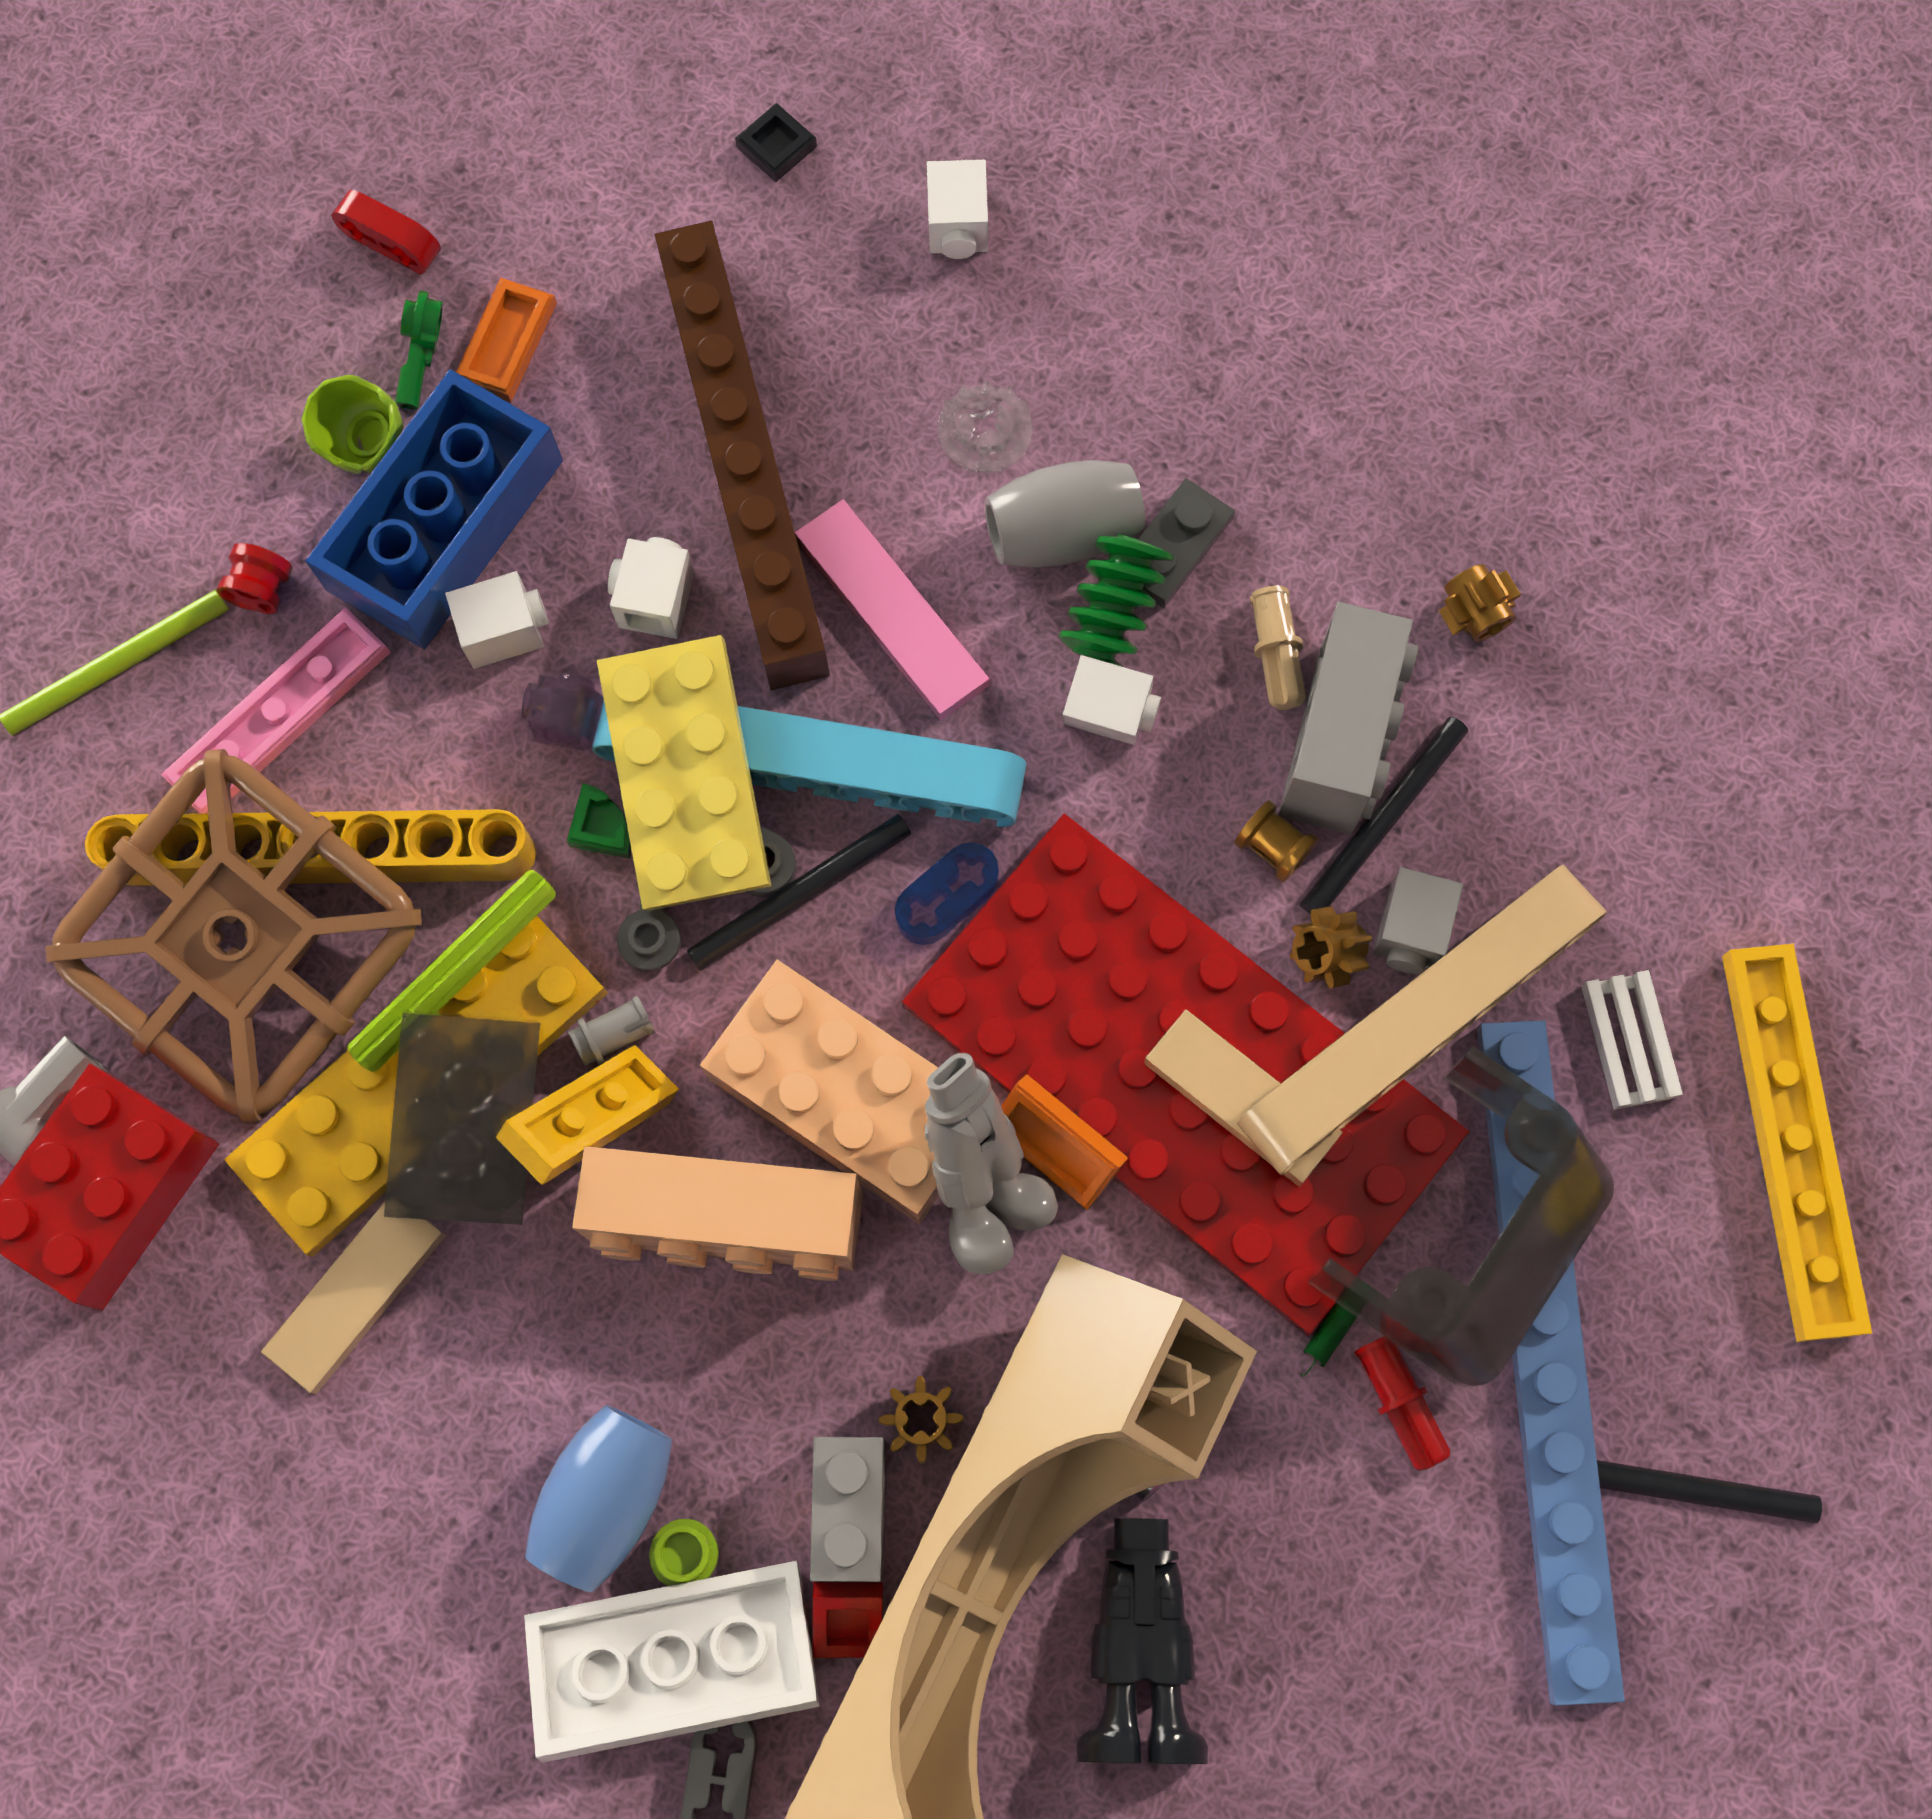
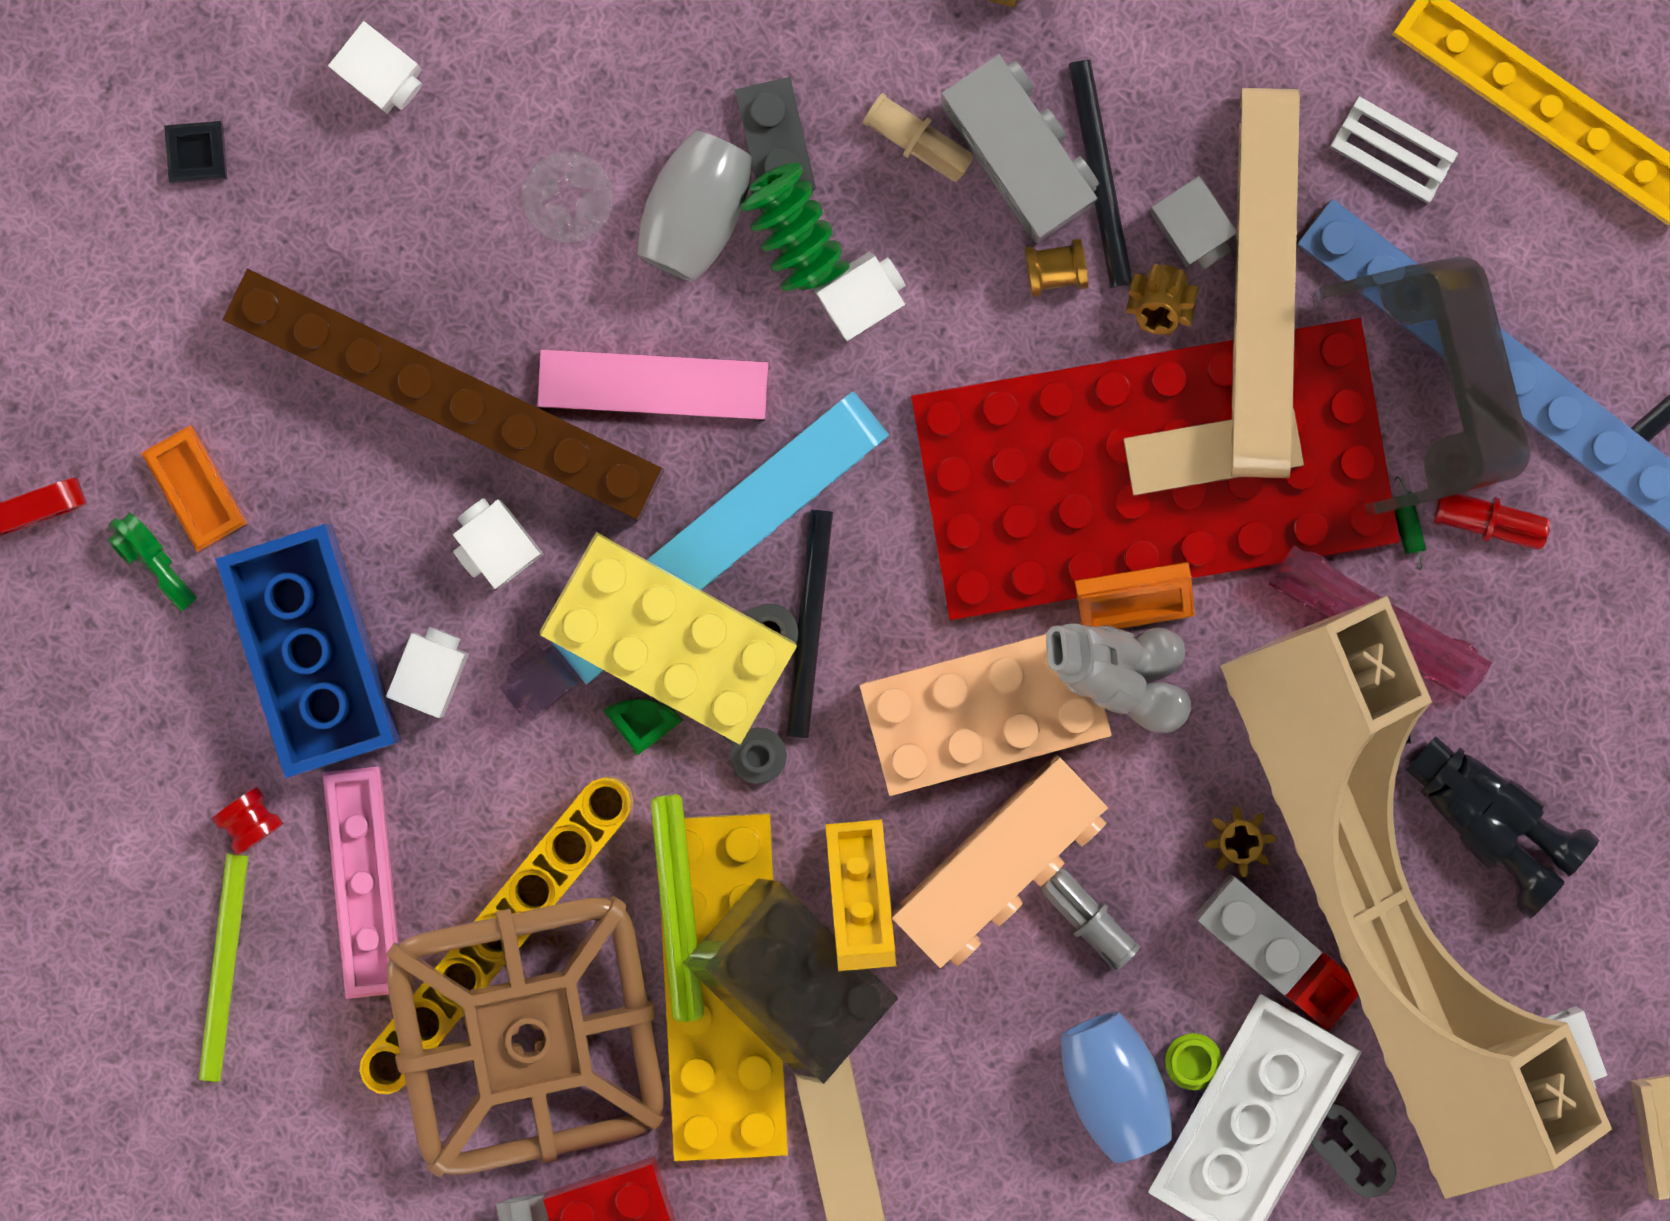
camera: 50 degrees left, 15 degrees up
(347, 409) = (190, 638): lime hair -> none
(610, 1031) = (803, 833): light grey pin -> none
(738, 1344) = (1090, 919): none -> light grey axle
(956, 904) = (913, 523): clear blue beam -> none
(1240, 1456) = (1327, 592): none -> clear pink plate

